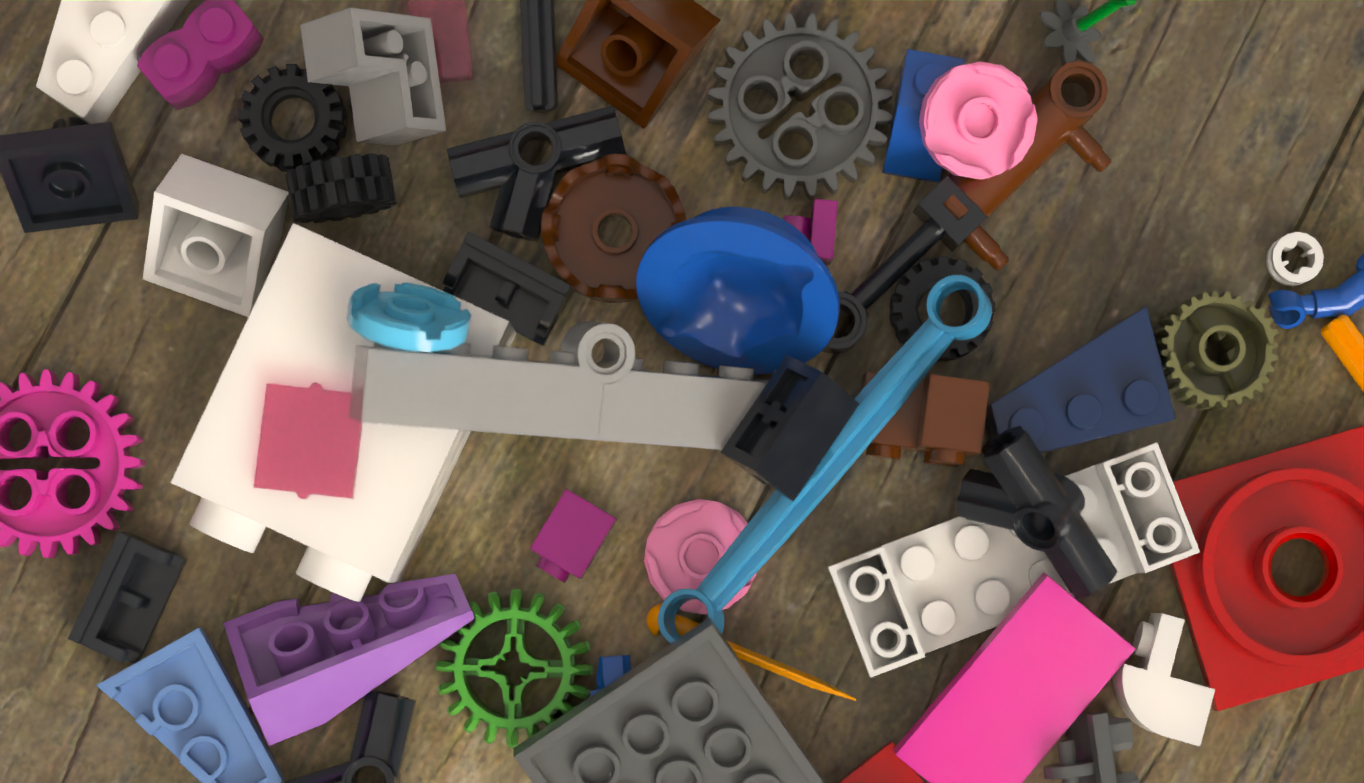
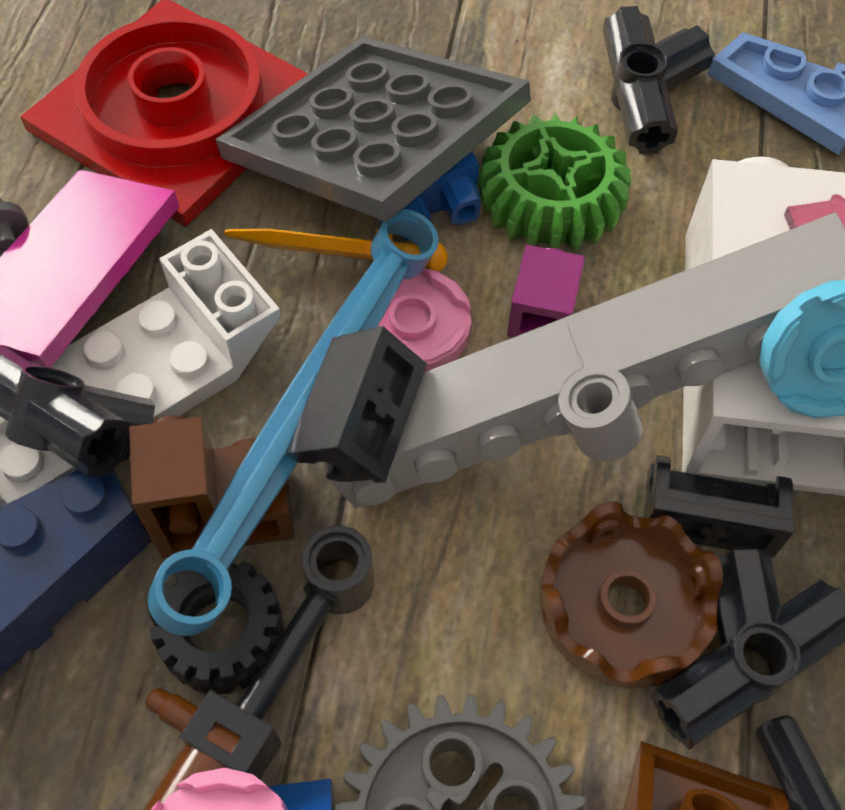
camera: 165 degrees right, 25 degrees down
(325, 656) = (737, 120): medium lavender wedge -> none
(738, 290) = (463, 555): blue piece -> none
(818, 228) = (396, 666): magenta tile -> none

